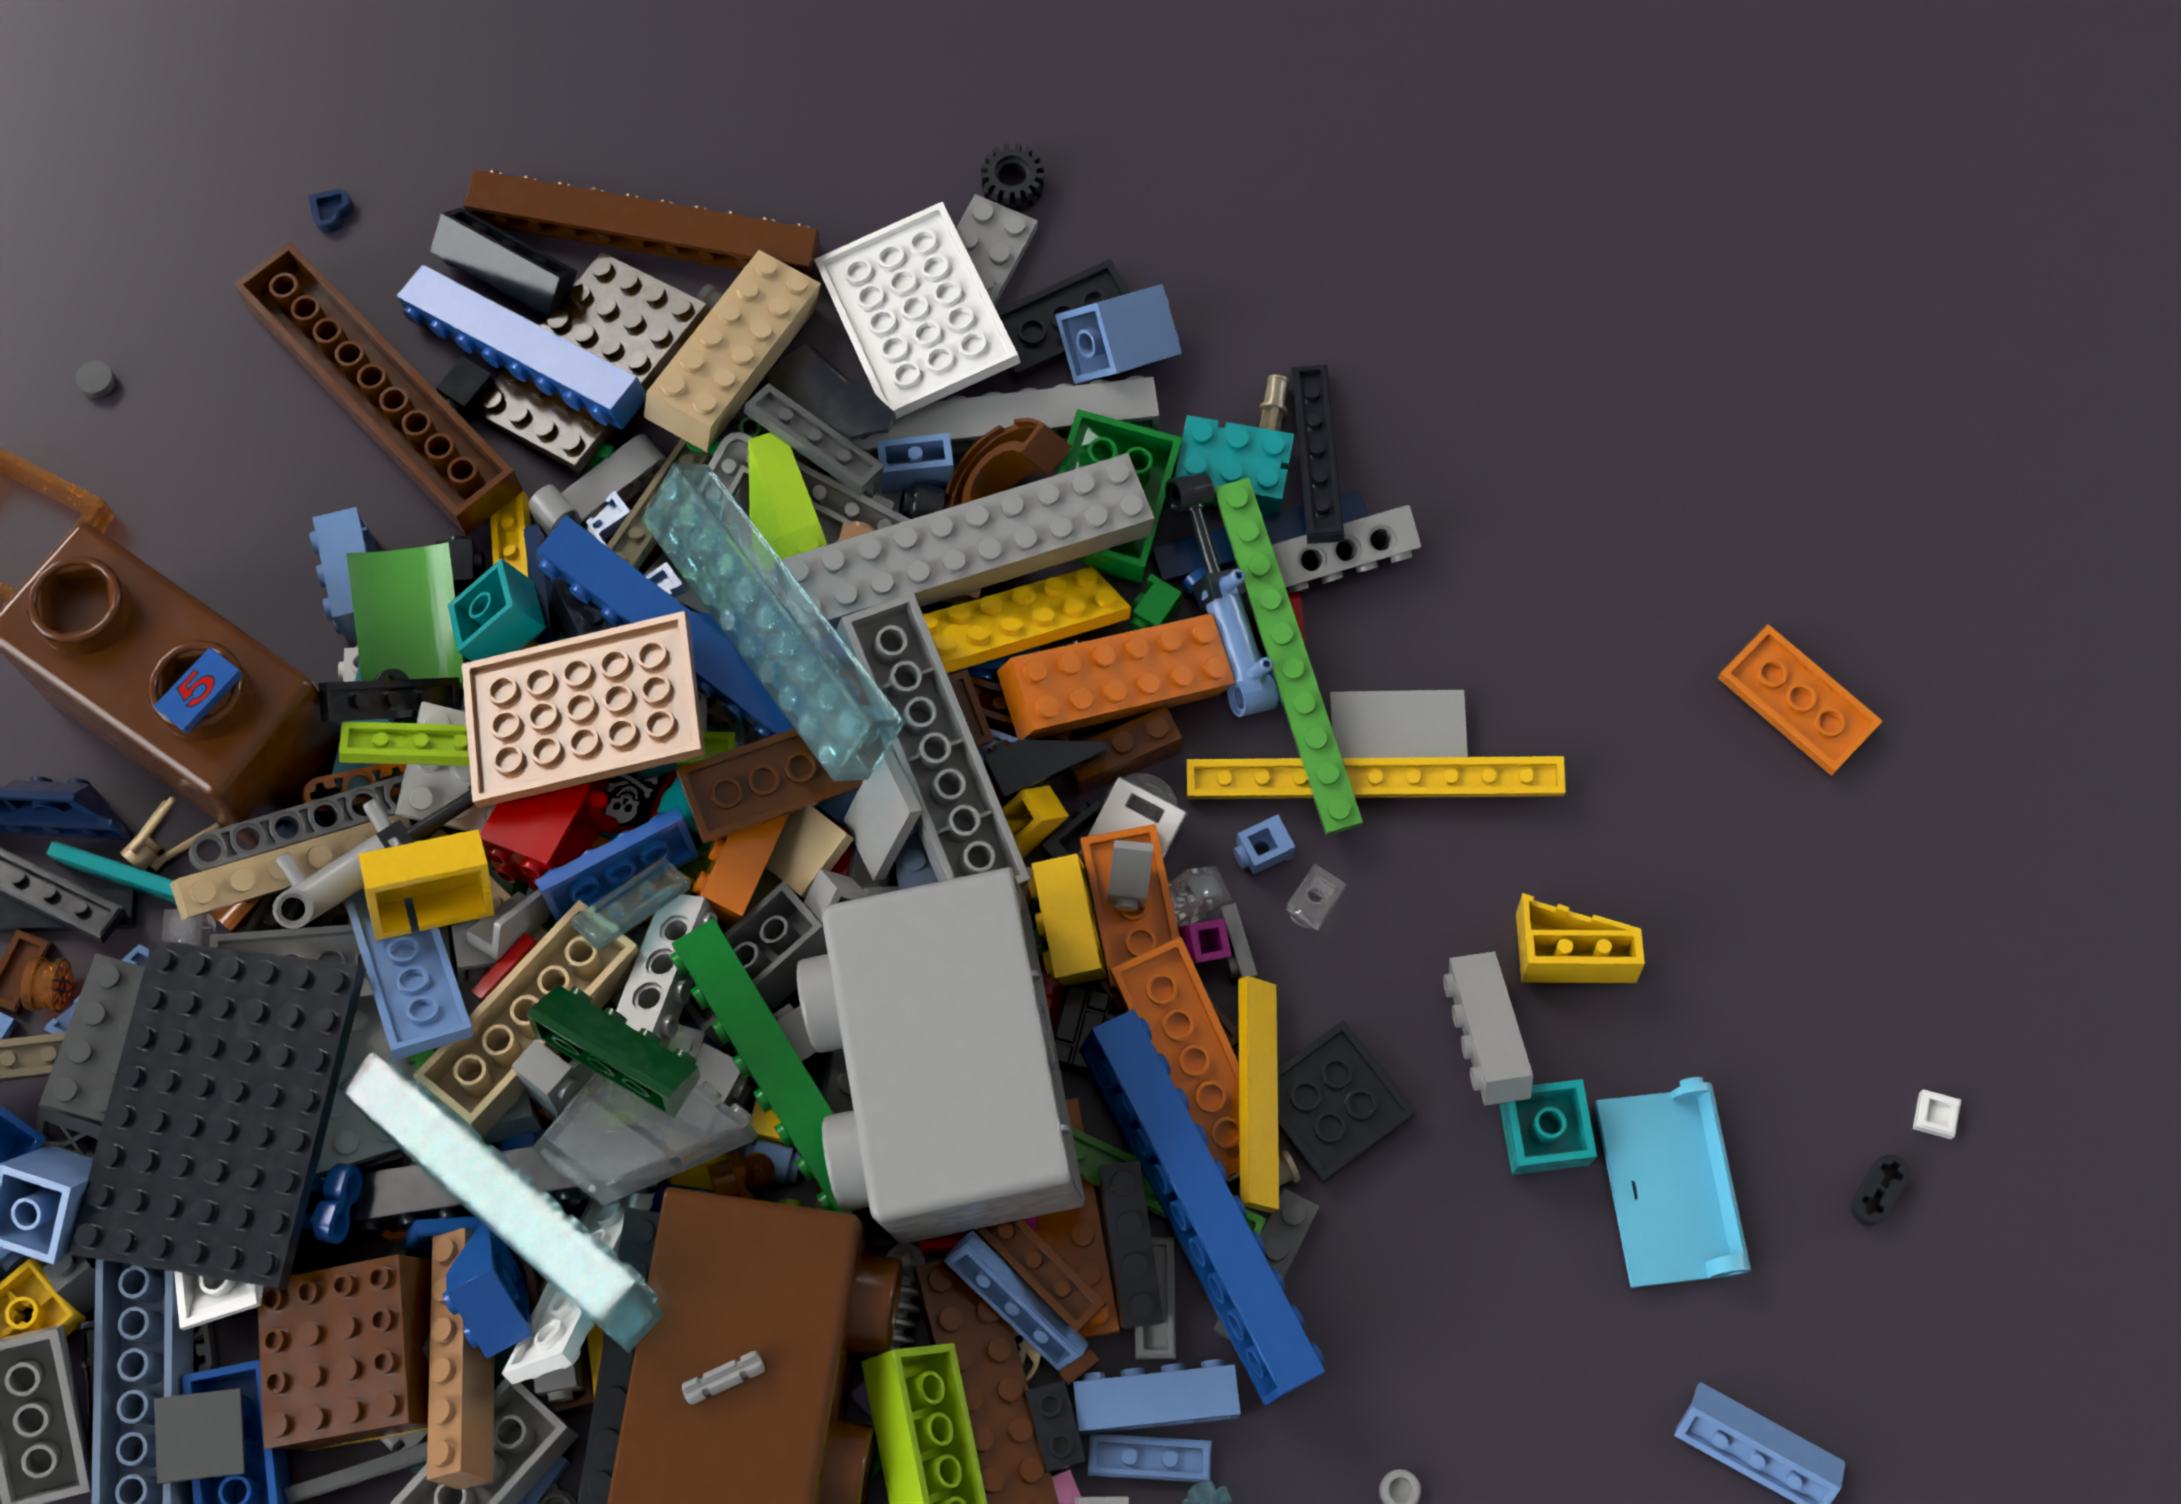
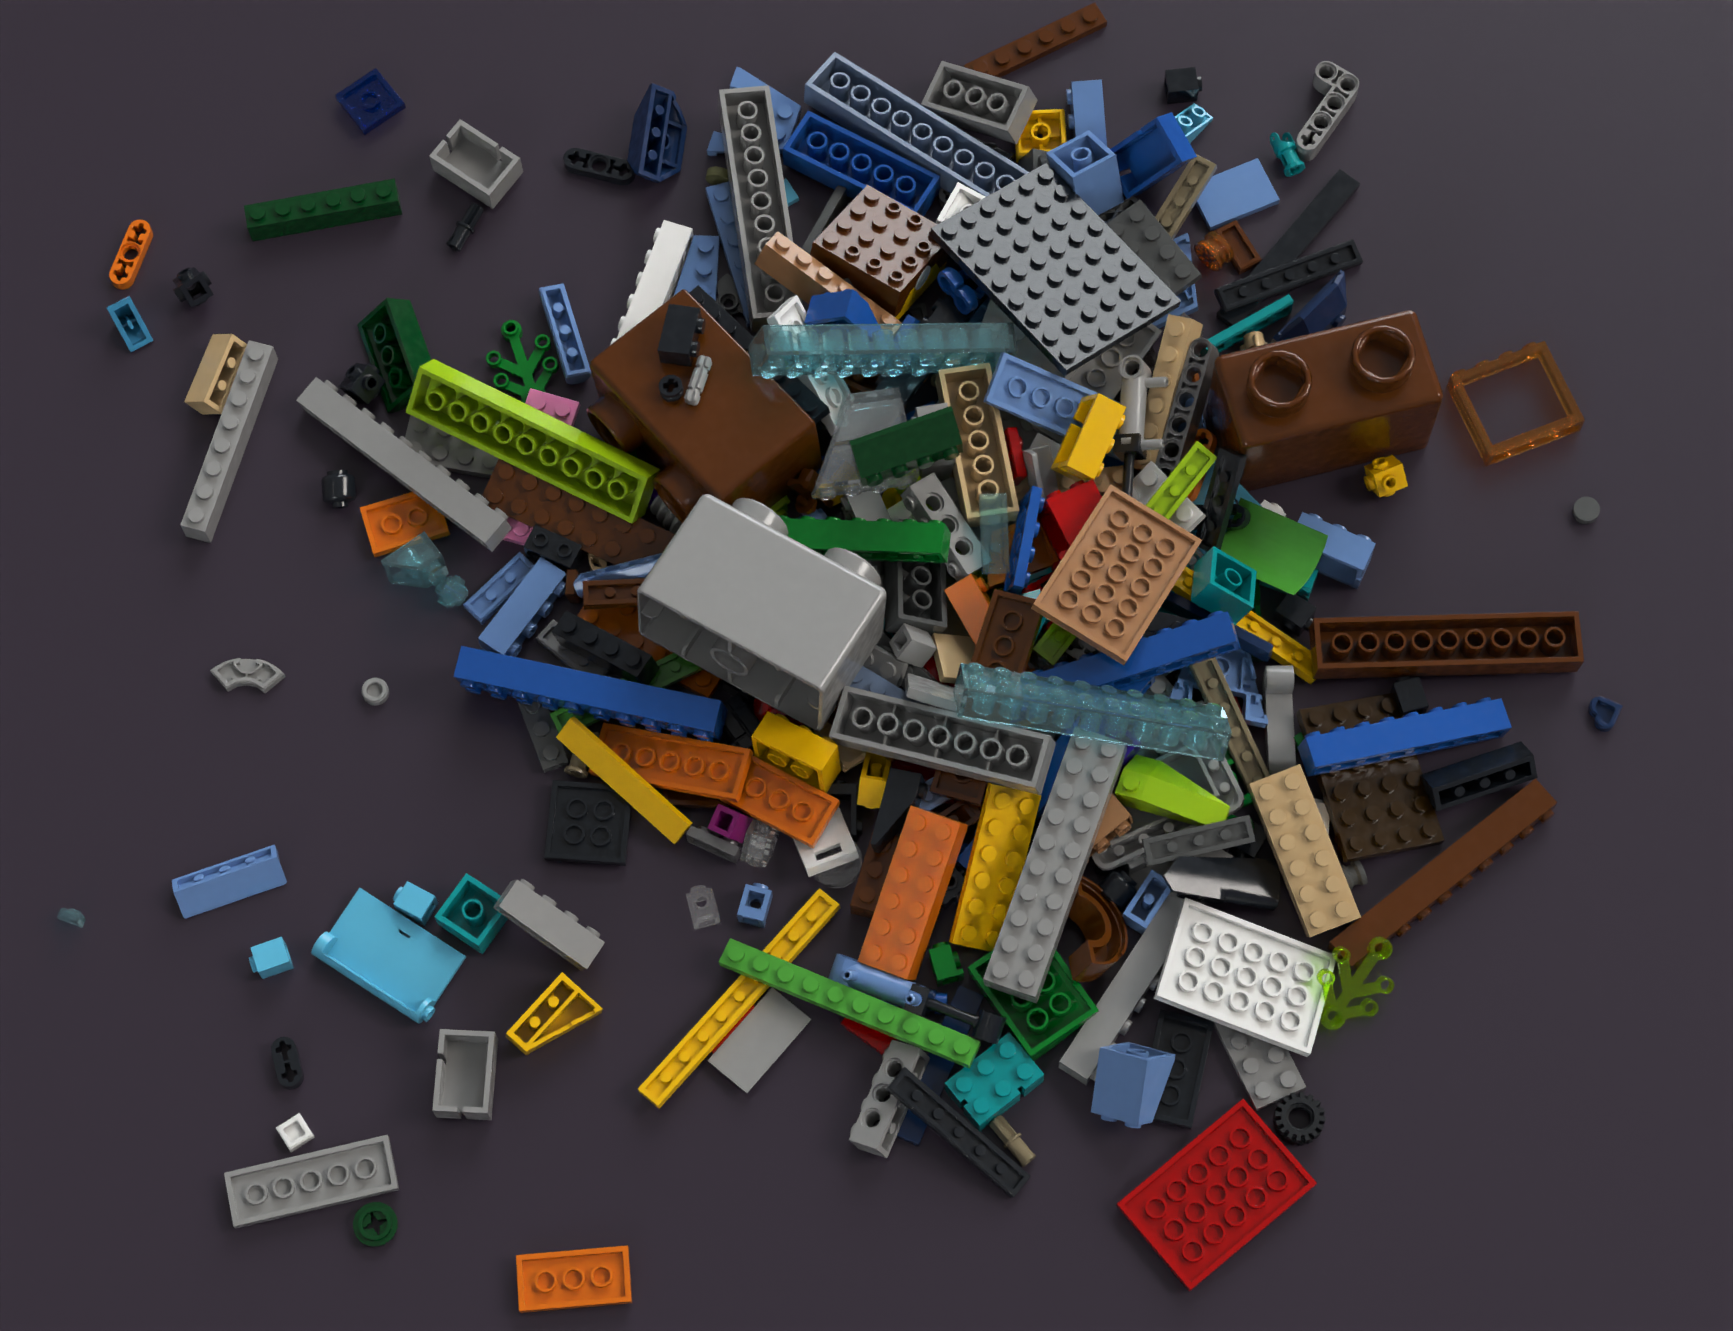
camera: 135 degrees right, 0 degrees up
(198, 690) = (1271, 374): blue tile -> none
(199, 1436) = (899, 161): dark grey tile -> none
(214, 587) = (1385, 476): none -> yellow brick
(679, 1451) = (680, 335): none -> black brick
(759, 1416) = (665, 383): none -> black bush
(833, 214) = (1352, 986): none -> clear neon green plant
(1129, 875) = (791, 799): light grey slope -> none
(1154, 194) = (1216, 1194): none -> red plate
(1592, 1209) = (415, 903): none -> medium azure brick
(1717, 979) = (469, 1074): none -> light grey piece
(1797, 1312) = (270, 958): none -> medium azure brick
(1957, 937) = (364, 1219): none -> dark green gear
(1969, 1046) = (311, 1181): none -> light grey plate

